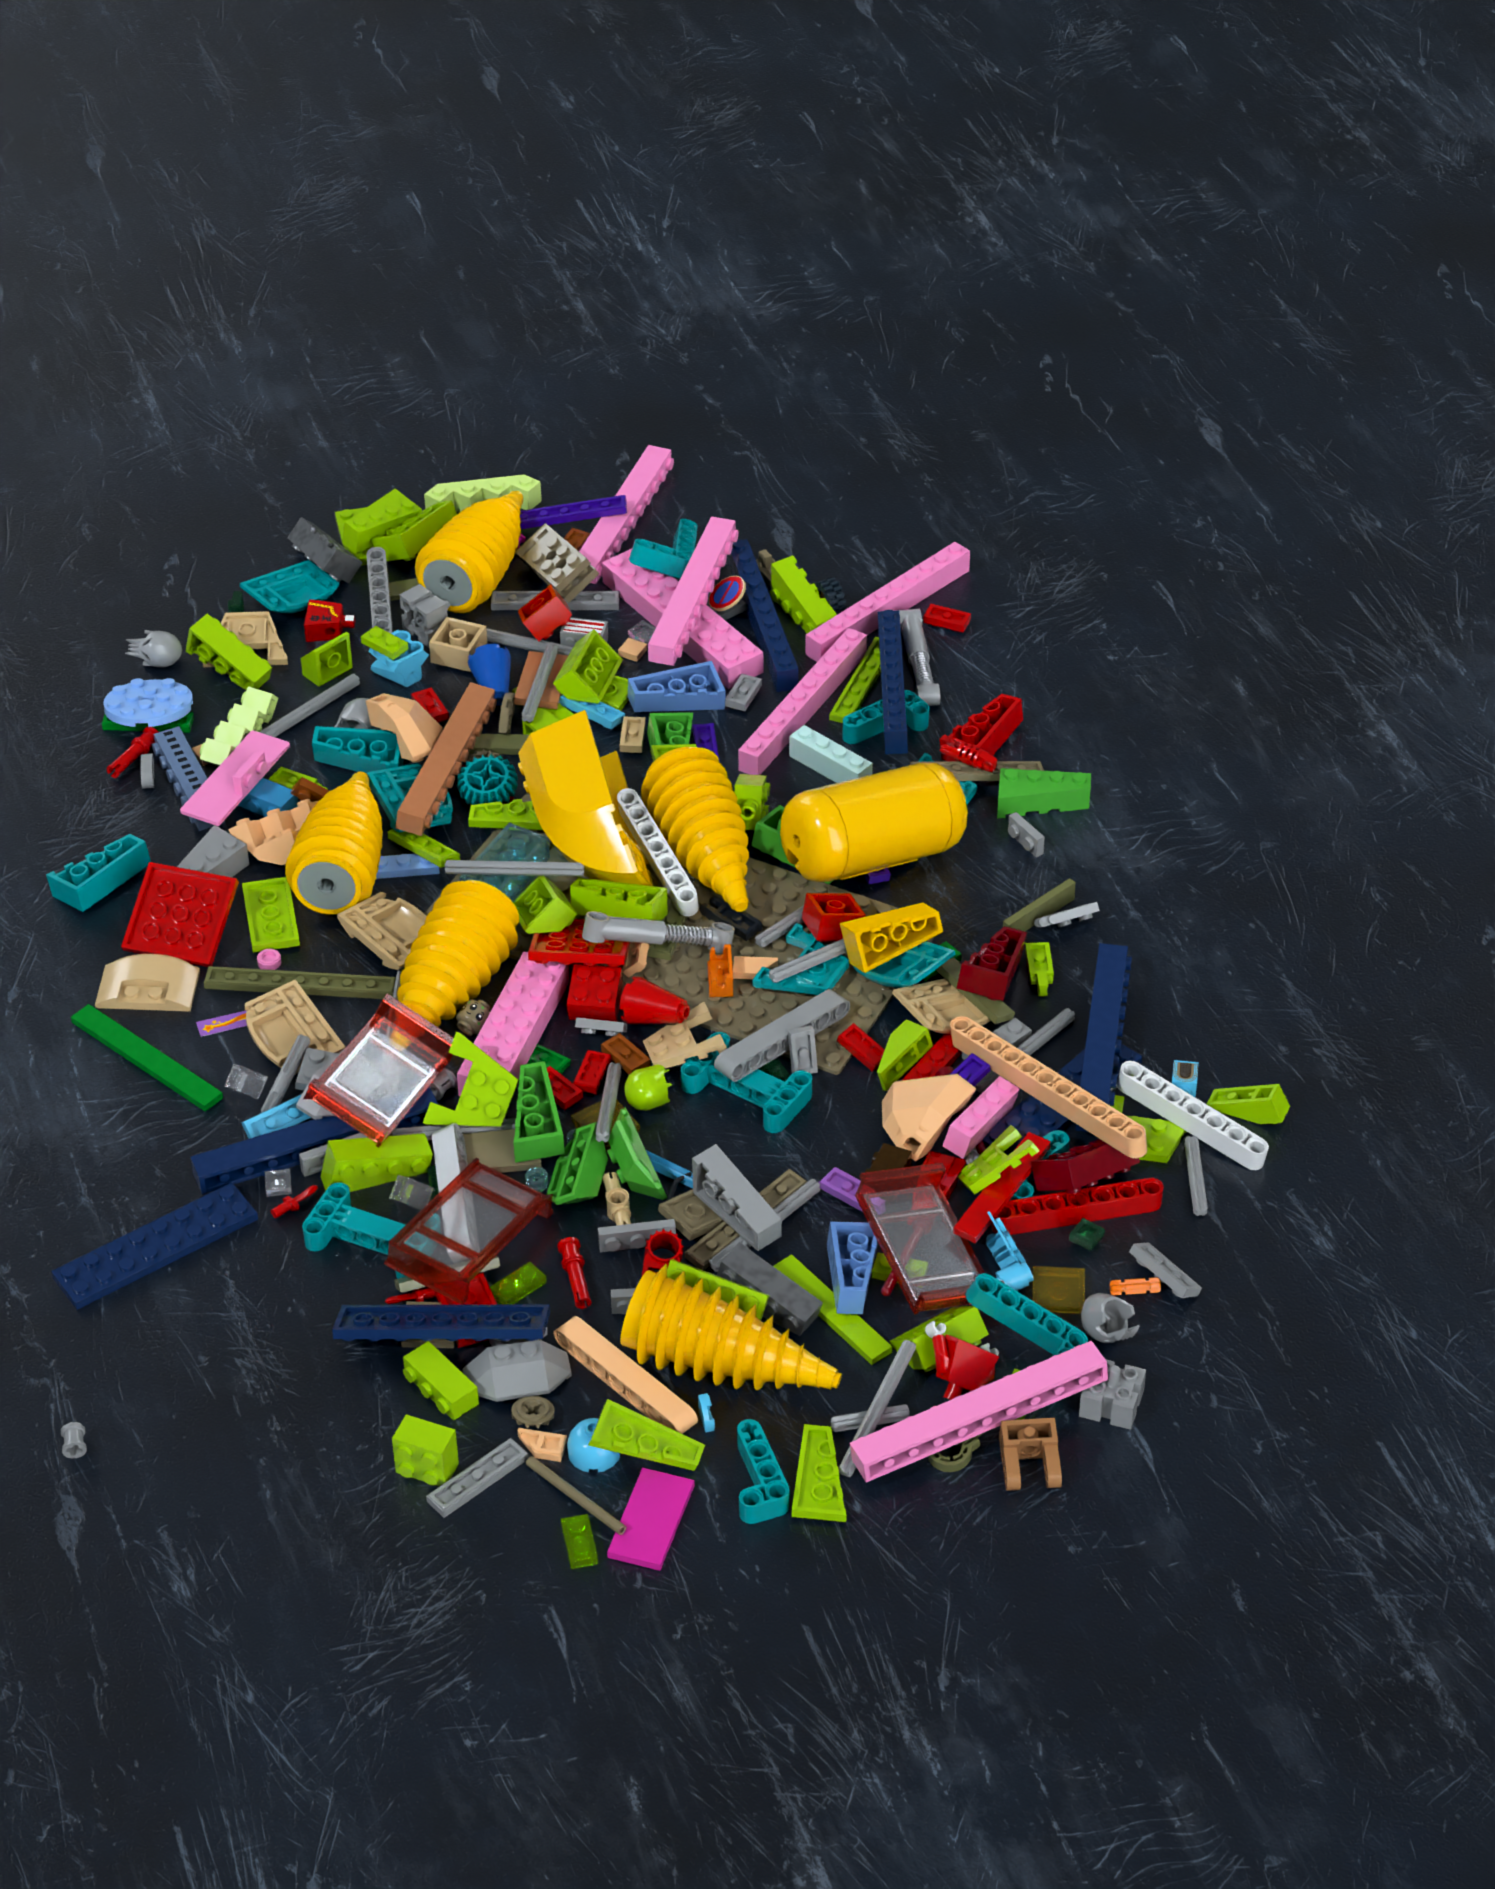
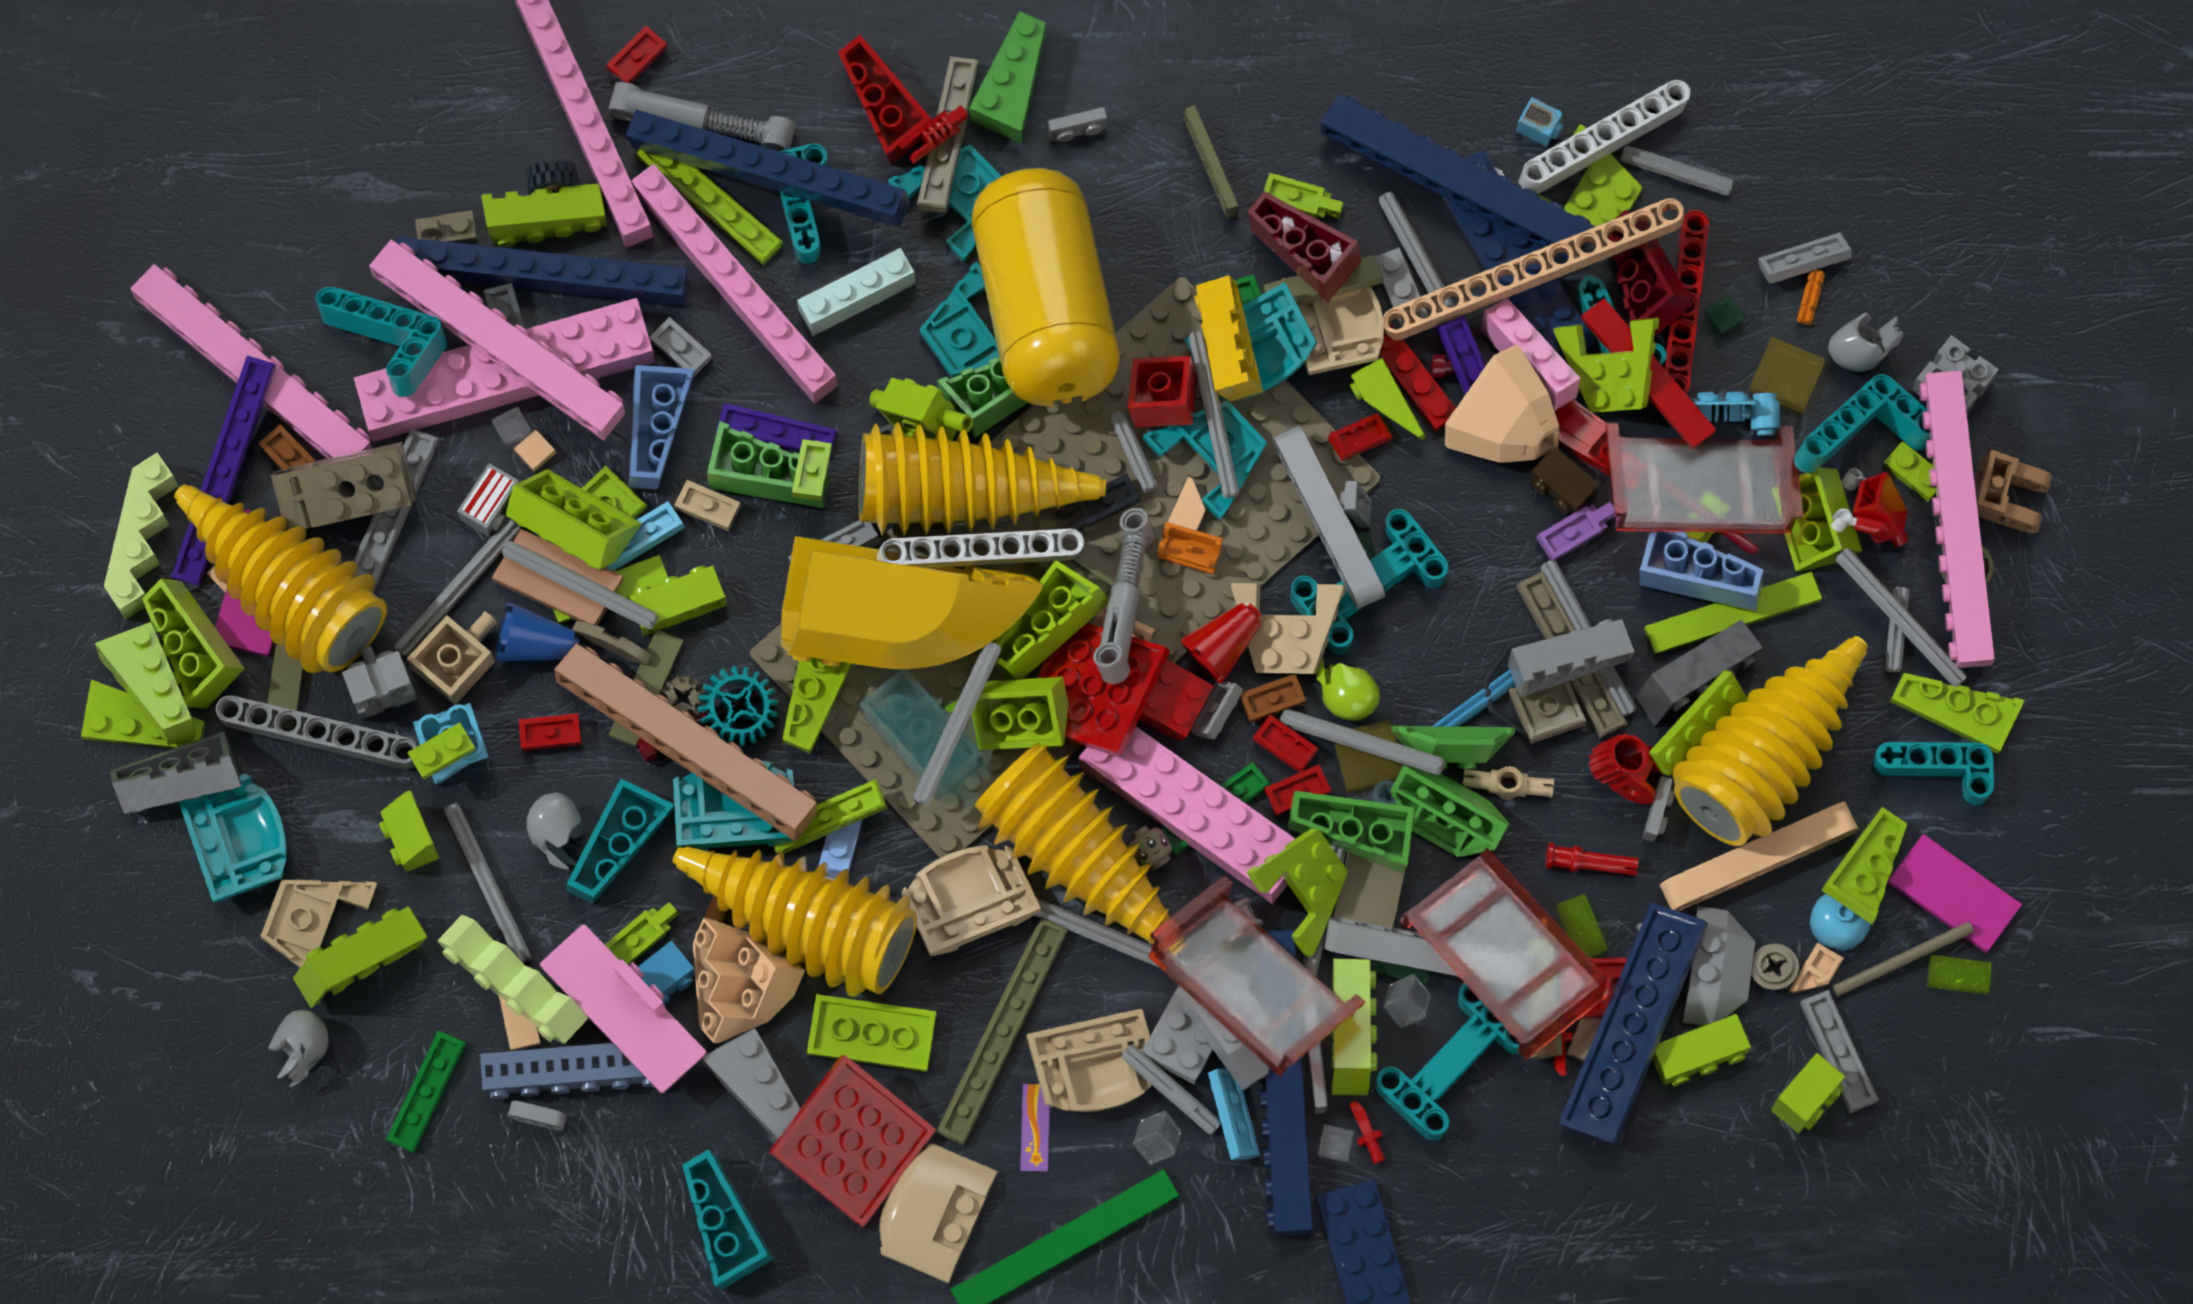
camera: 70 degrees left, 30 degrees up
(139, 746) = (483, 1114): red pin -> none
(148, 702) = (428, 1098): light blue plate -> none
(236, 603) = (239, 918): clear green plate -> none
(269, 959) = (947, 1056): bright pink tile -> none
(306, 789) = (694, 913): dark orange plate -> none
(326, 621) = (320, 812): red torso -> none
(410, 722) = (616, 767): light nougat brick -> none
(535, 1173) = (1439, 857): clear light blue bush -> none
(545, 613) = (448, 534): red brick -> none
(631, 1235) = (1564, 778): light grey plate -> none
(705, 1414) = (1834, 791): medium azure tile -> none
(727, 593) = (504, 293): piece -> none
(1064, 917) = (1230, 134): light grey hinge -> none
(1252, 1103) = (1597, 72): lime slope -> none

